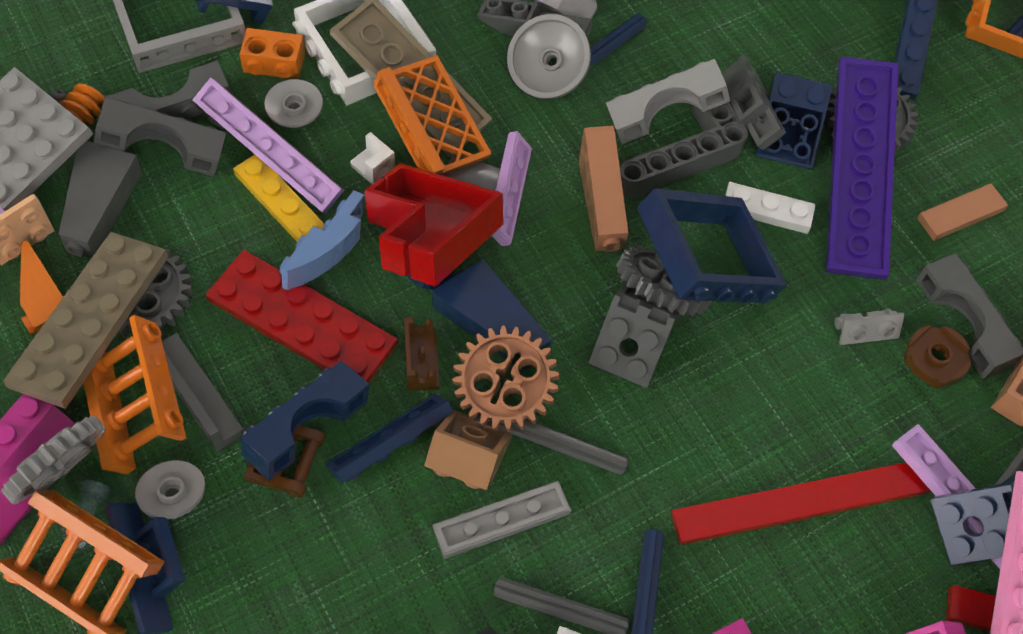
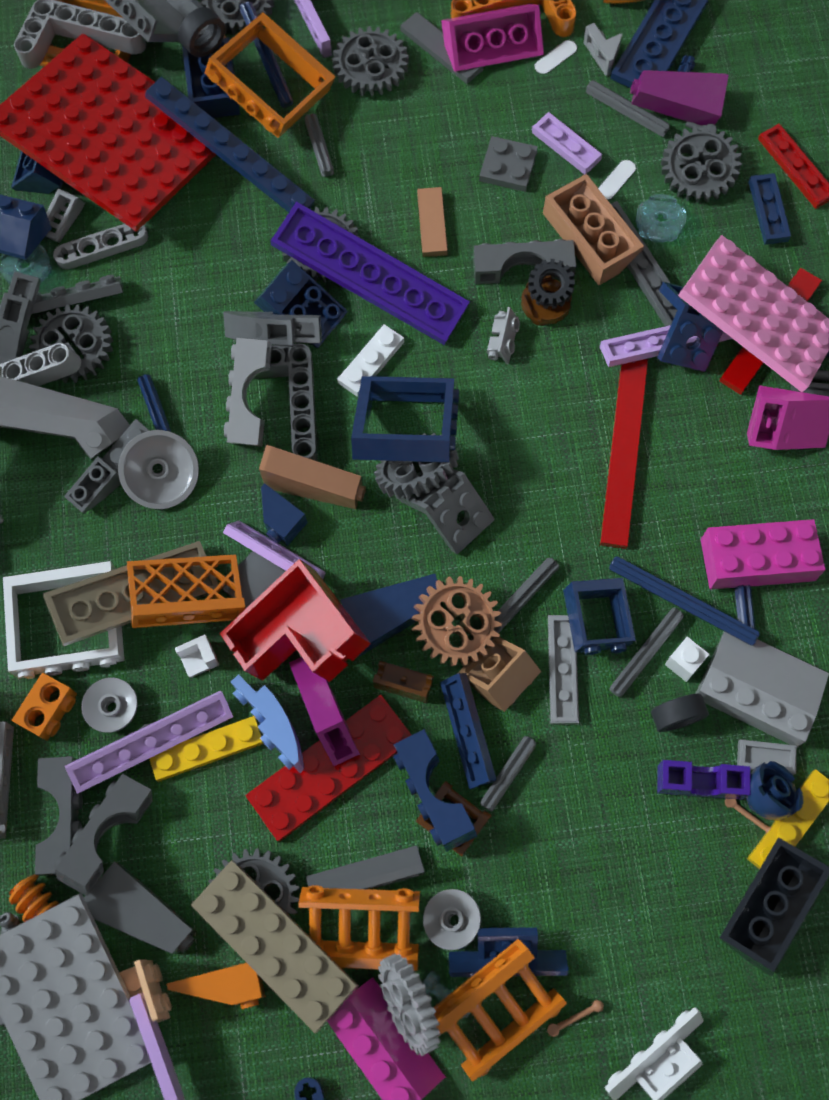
camera: 60 degrees left, 10 degrees up
(346, 286) = (324, 713): none -> magenta slope
(357, 498) = (508, 773): none -> dark grey axle
(550, 179) = (280, 516): none -> dark blue slope
(609, 518) = (600, 588): none -> dark blue window
(964, 329) = (558, 270): none -> black tyre
(983, 79) = (319, 145): none -> dark grey axle

